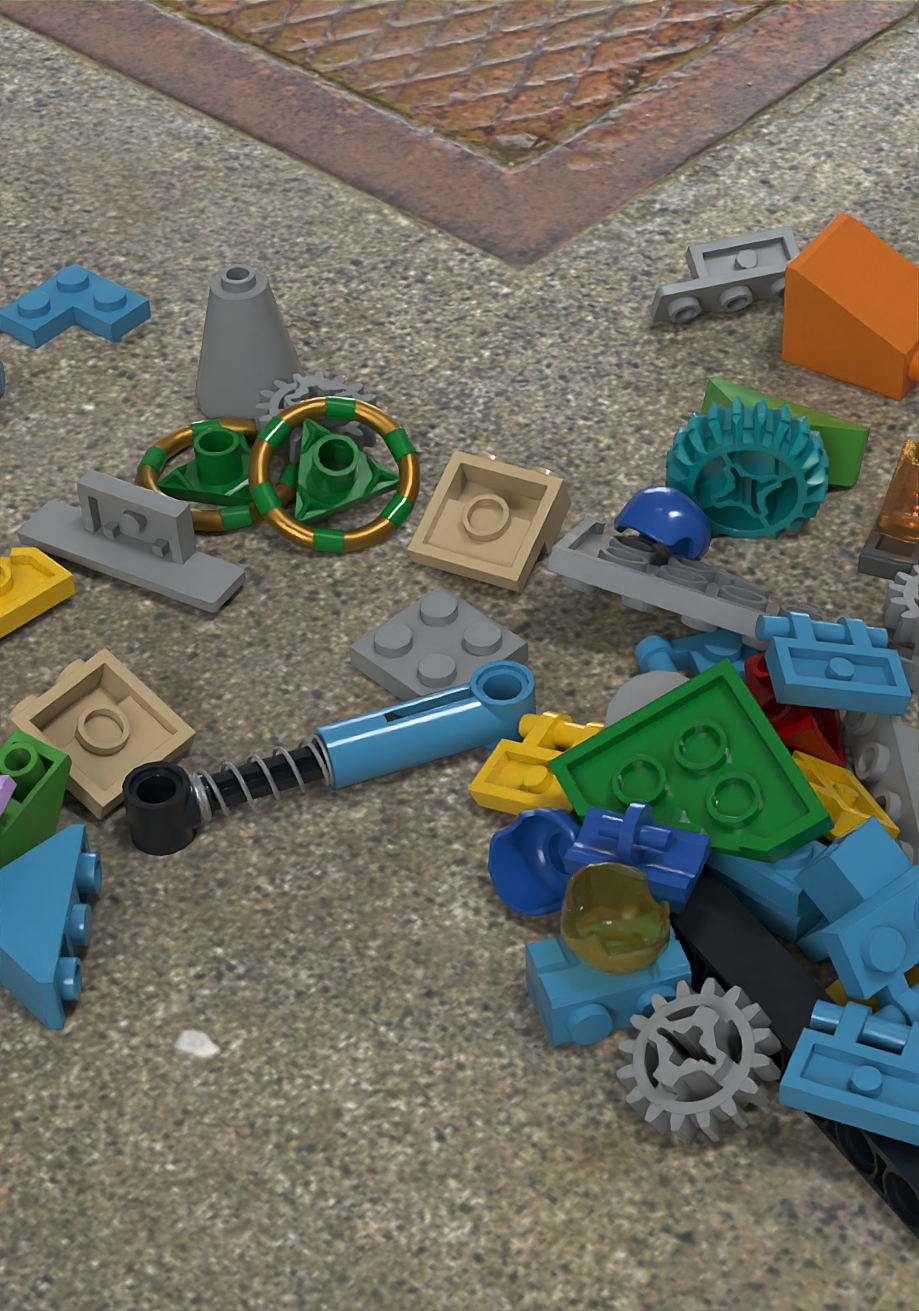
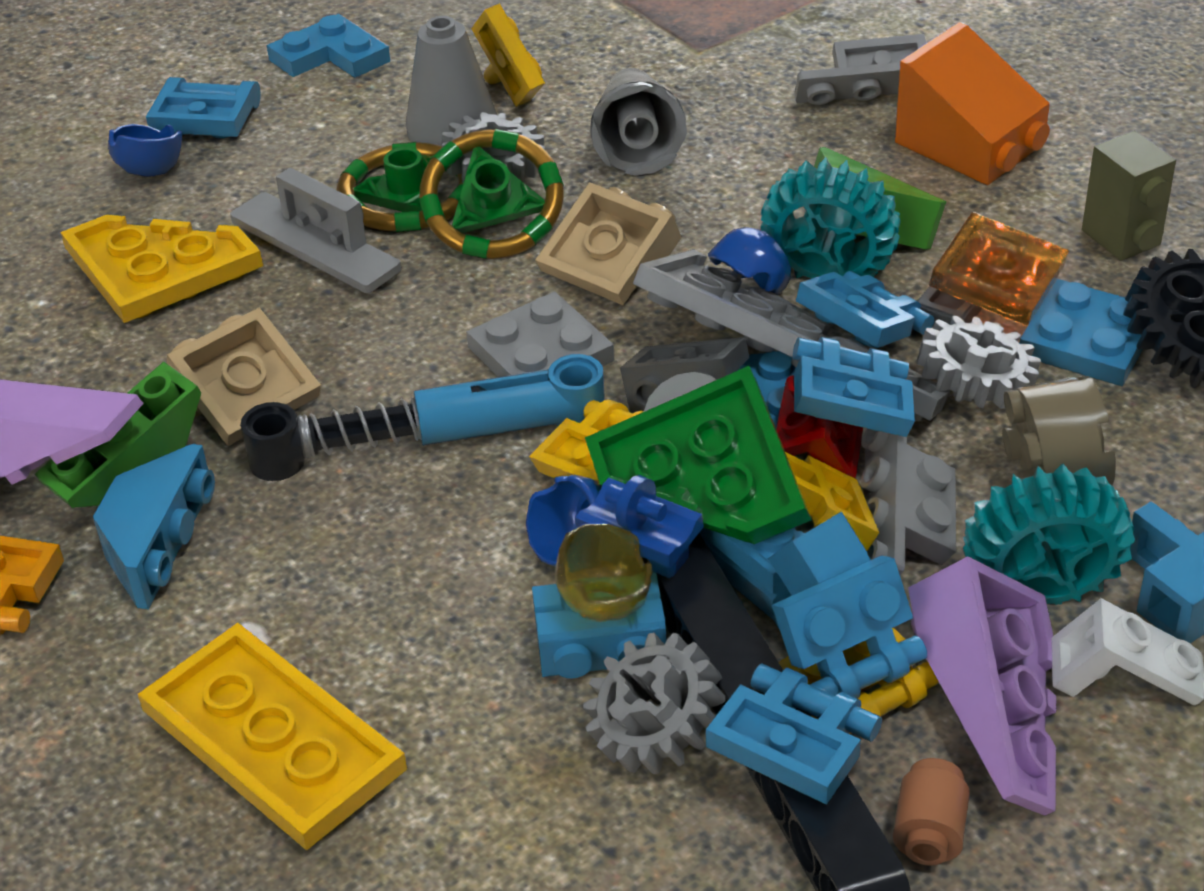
camera: 10 degrees right, 0 degrees up
(264, 1157) = (273, 734): none -> yellow plate
(307, 300) = (507, 56): none -> yellow plate
(484, 367) = (637, 124): none -> light grey cone
(596, 666) = (660, 362): none -> dark grey bracket
(805, 566) = (863, 307): none -> dark azure plate

